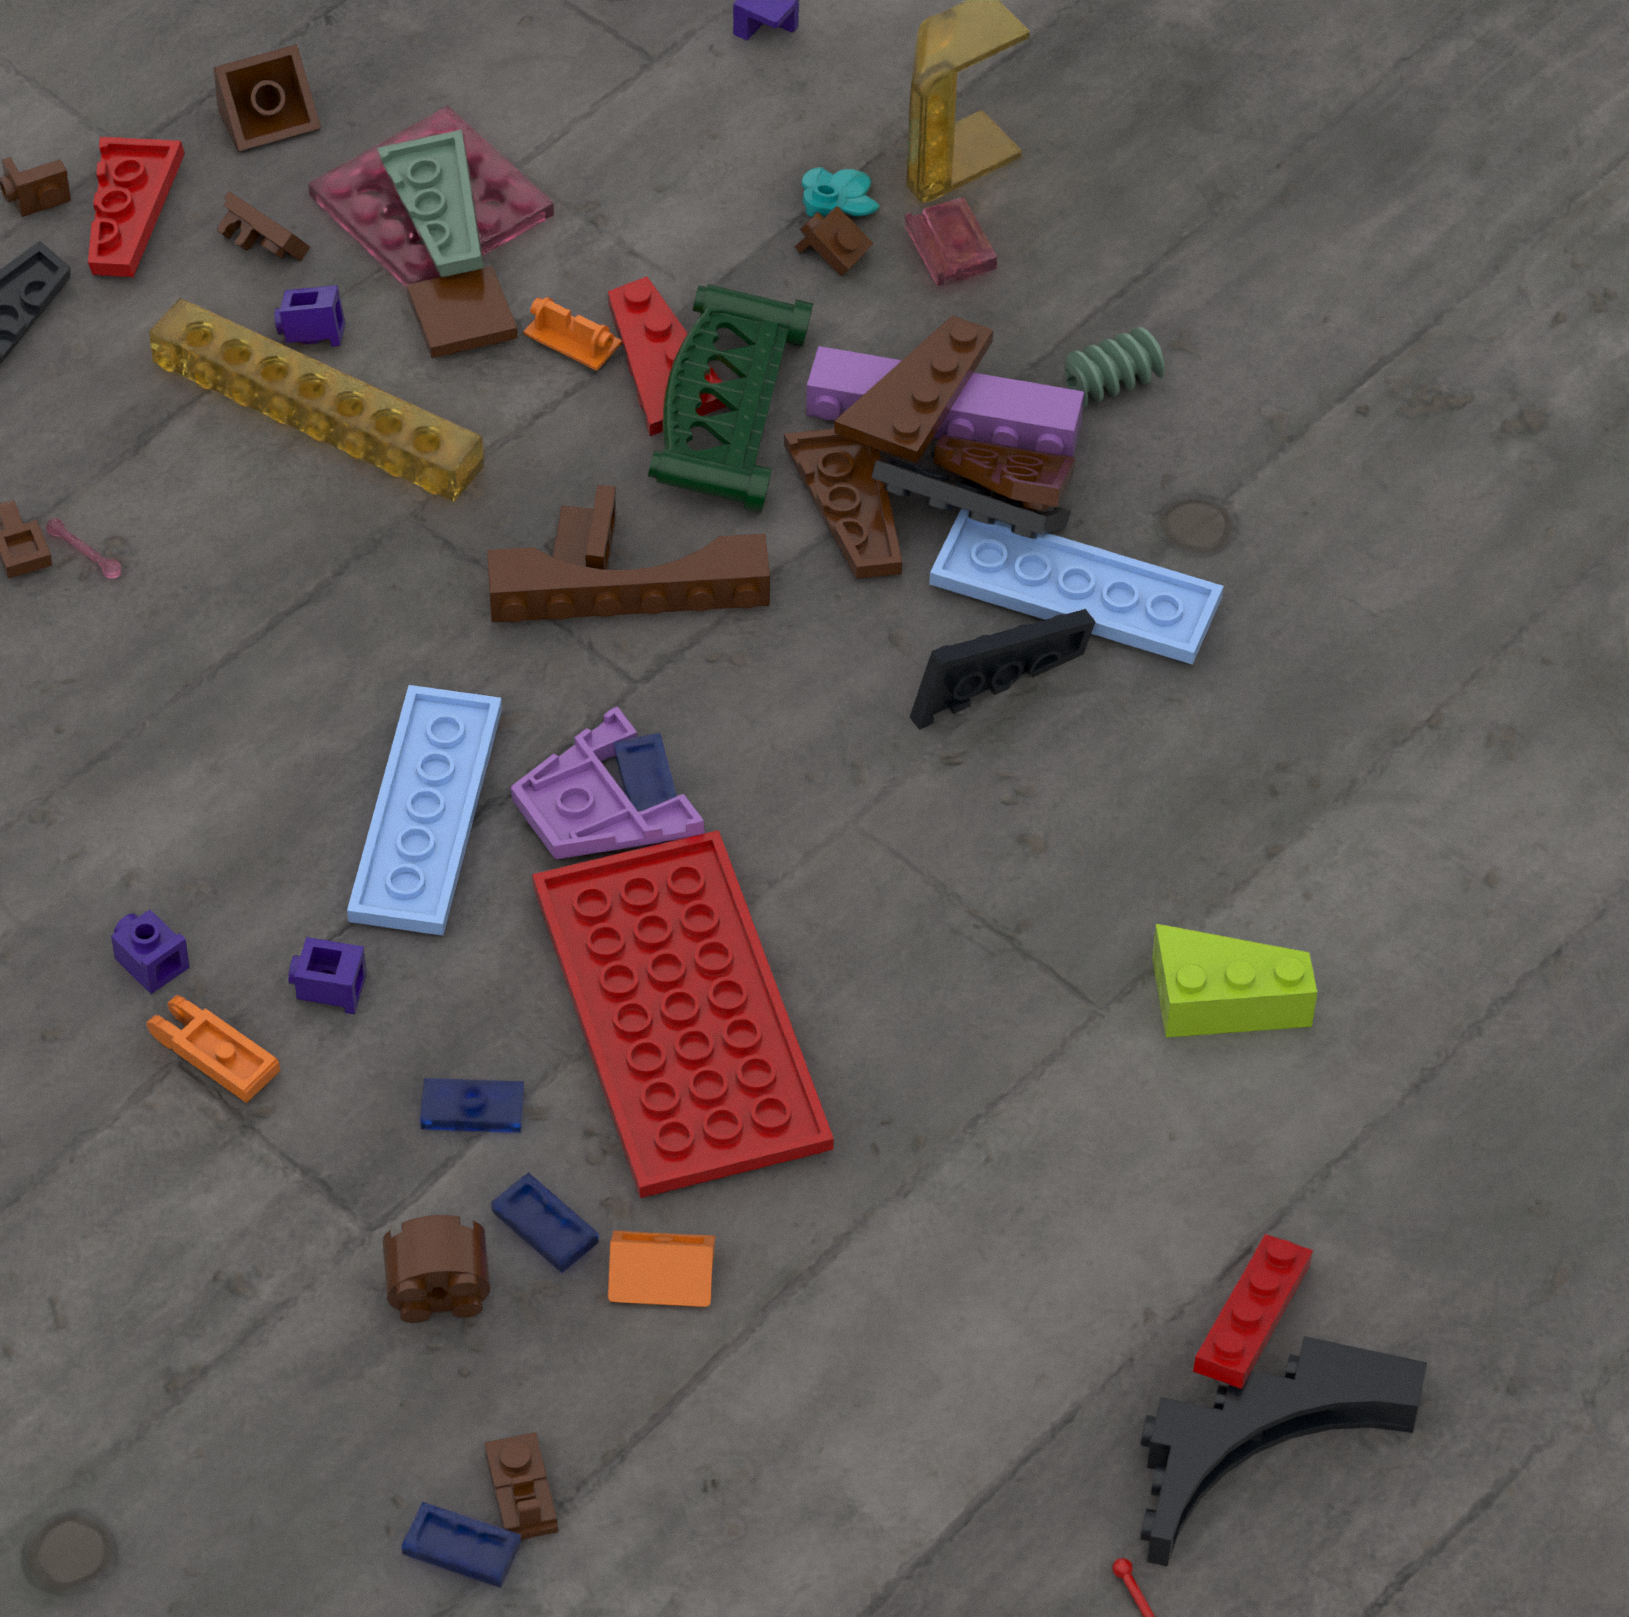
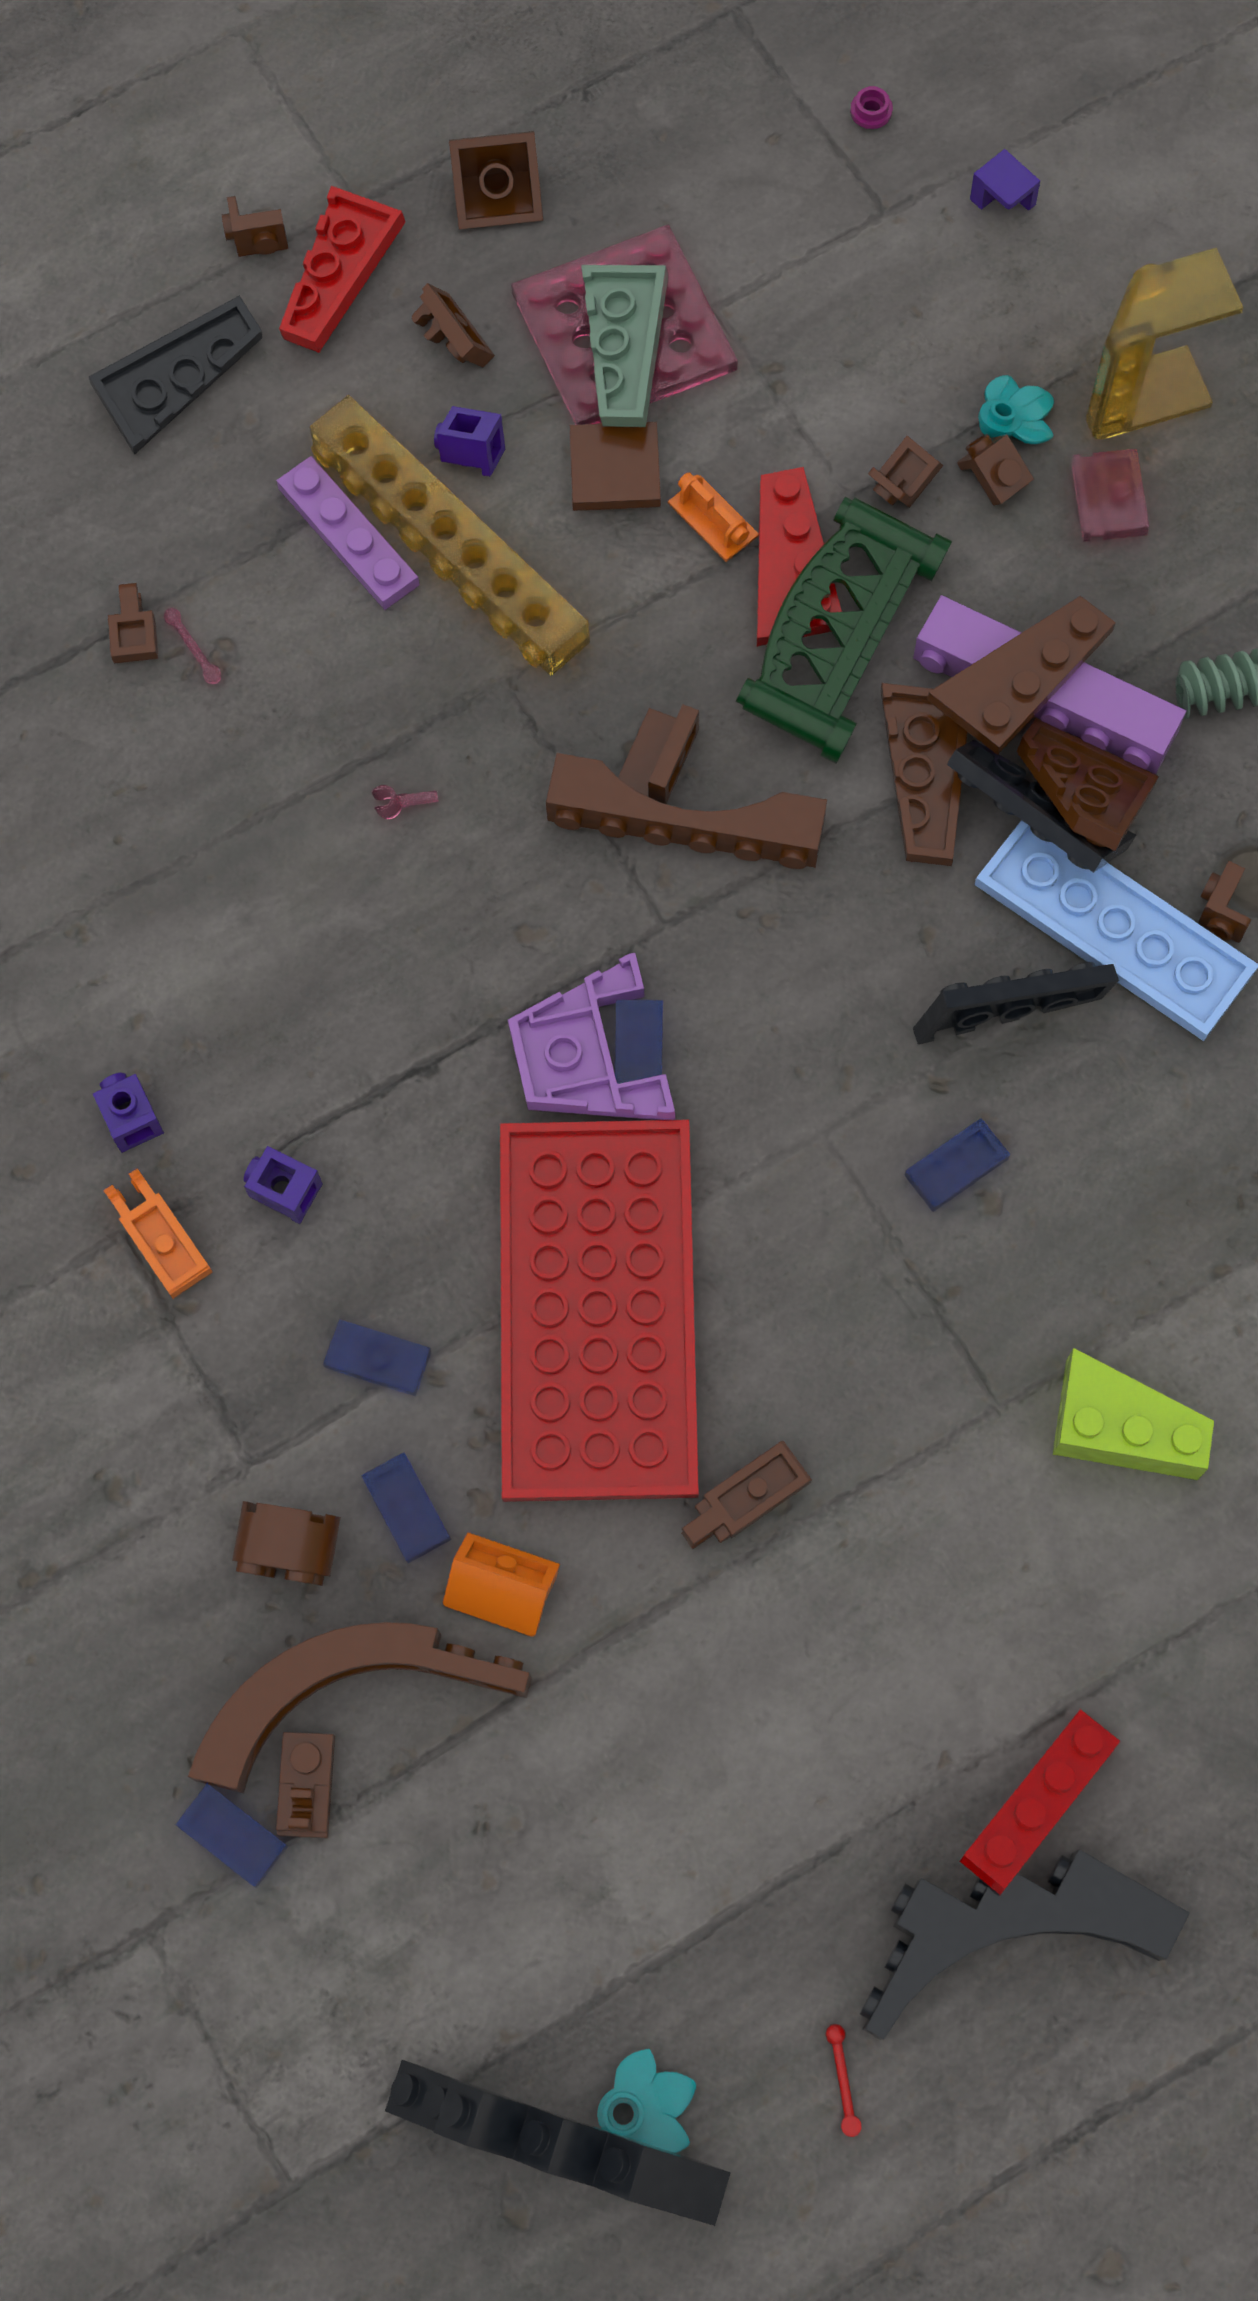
camera: 20 degrees right, 20 degrees up
(211, 421) = (348, 532): none -> medium lavender plate
(330, 636) = (399, 801): none -> clear pink hand
(425, 810) = (423, 1022): light blue plate -> none
(523, 1360) = (297, 1673): none -> reddish brown arch
(748, 261) = (905, 473): none -> reddish brown bracket
(880, 1134) = (747, 1496): none -> reddish brown hinge
(991, 813) = (957, 1164): none -> clear blue plate
(1171, 552) = (1216, 915): none -> reddish brown bracket

